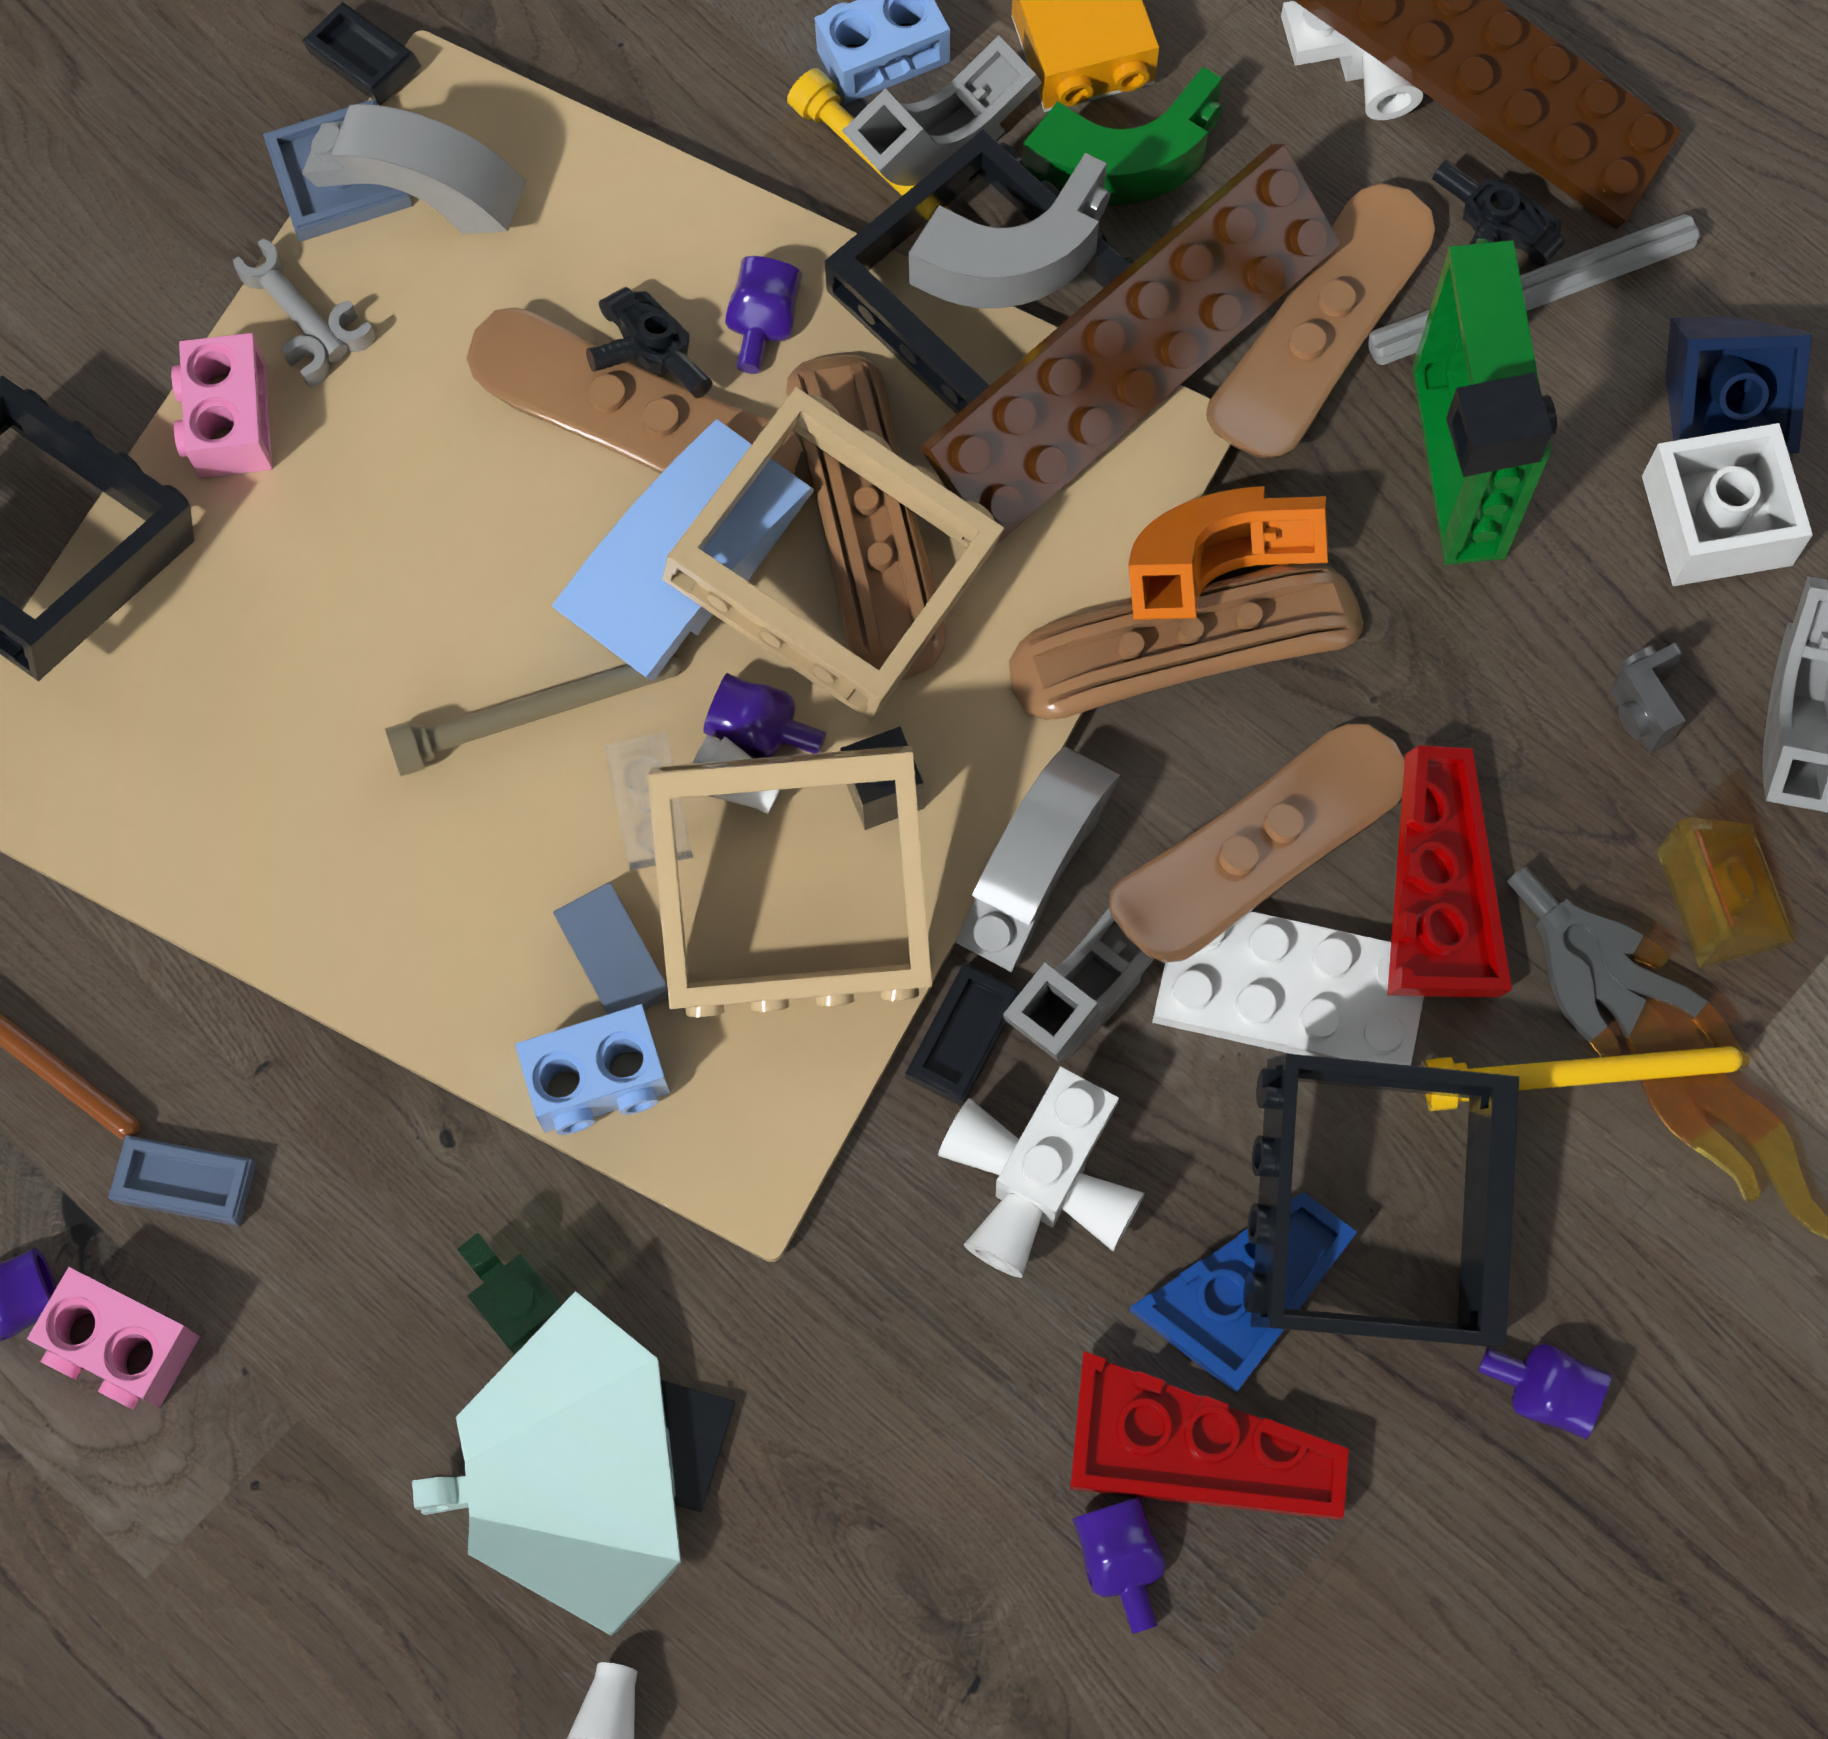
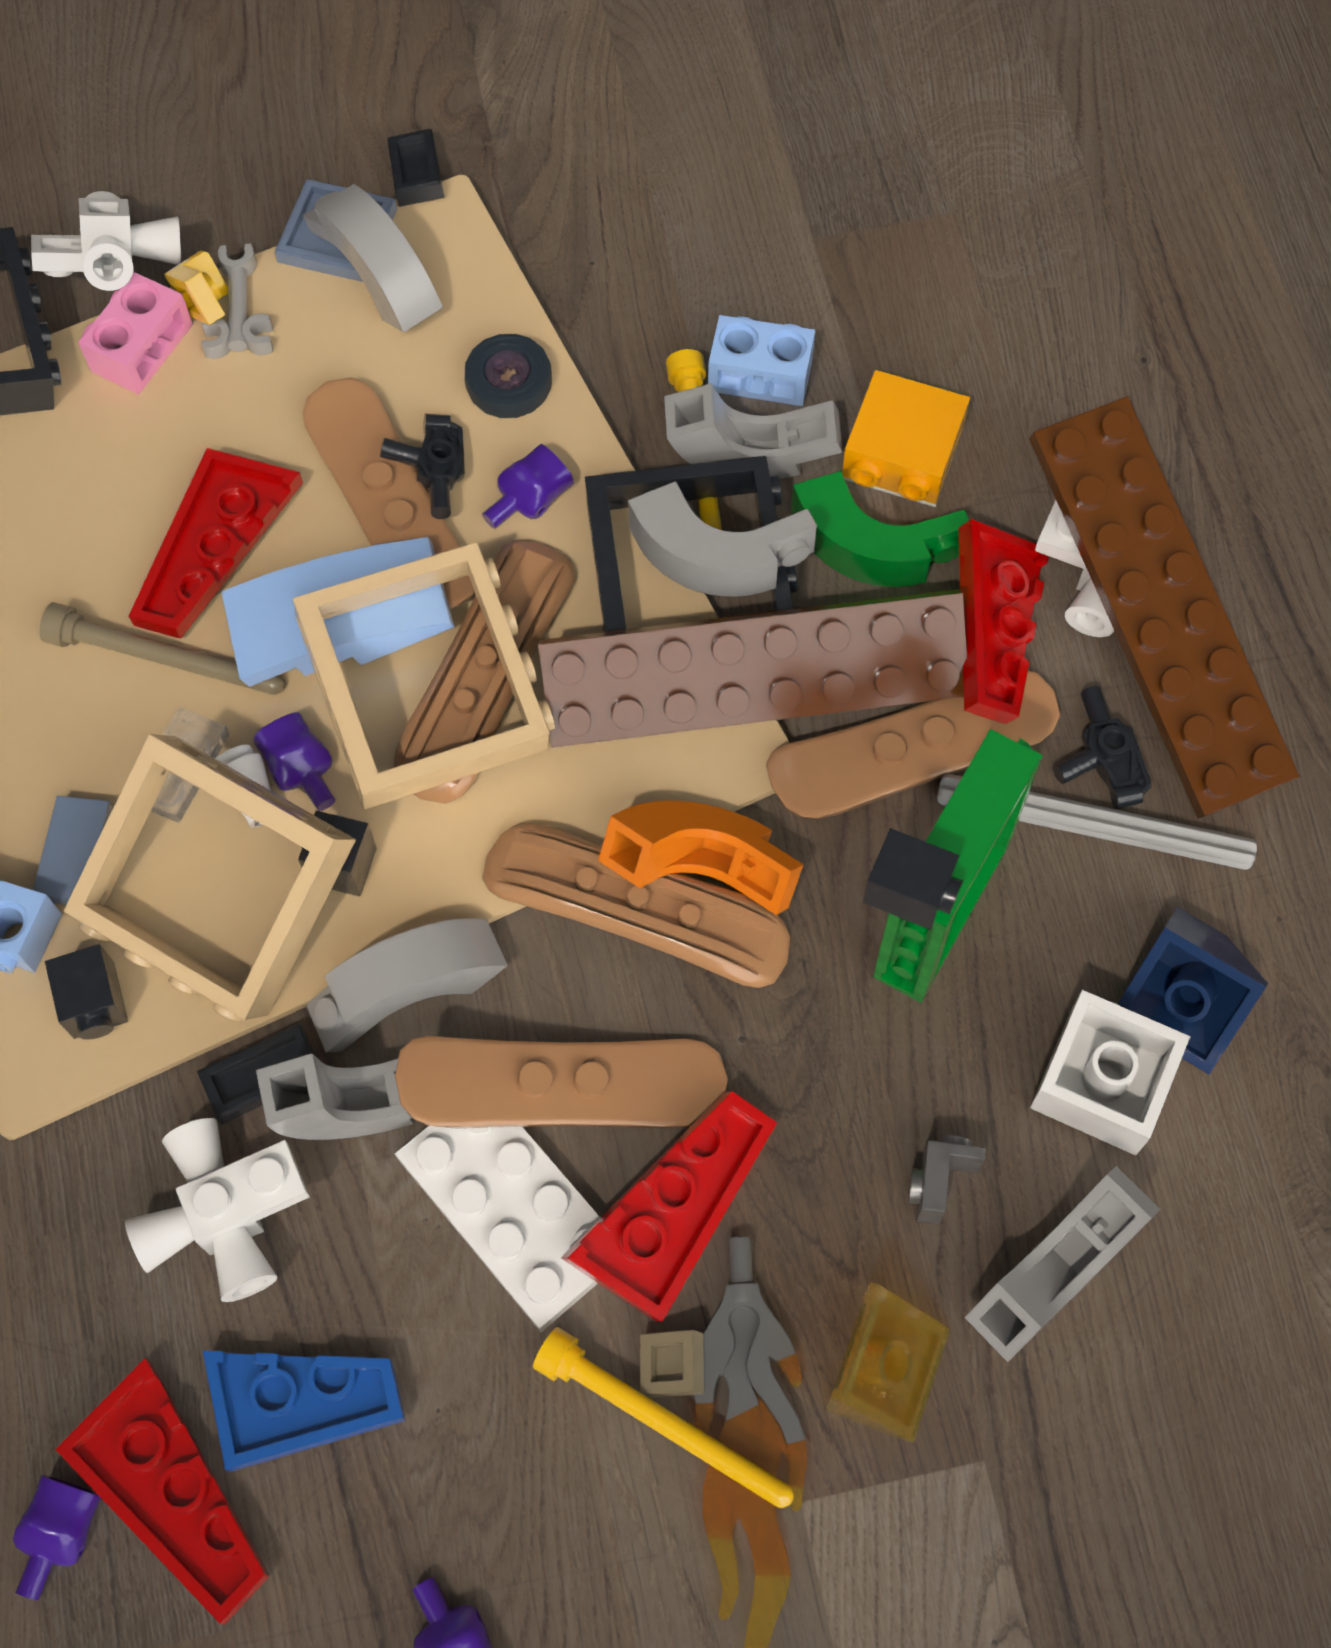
camera: 35 degrees right, 5 degrees down
(113, 330) = (106, 243): none -> white brick
(247, 309) = (200, 286): none -> yellow bracket
(483, 552) = (211, 534): none -> red wing
(630, 231) = (523, 391): none -> black bush
(751, 1070) = (86, 992): none -> black brick
(1281, 110) = (999, 597): none -> red wing
(1486, 1198) = (422, 1558): black window -> none
(1547, 1019) = (672, 1364): none -> dark tan tile

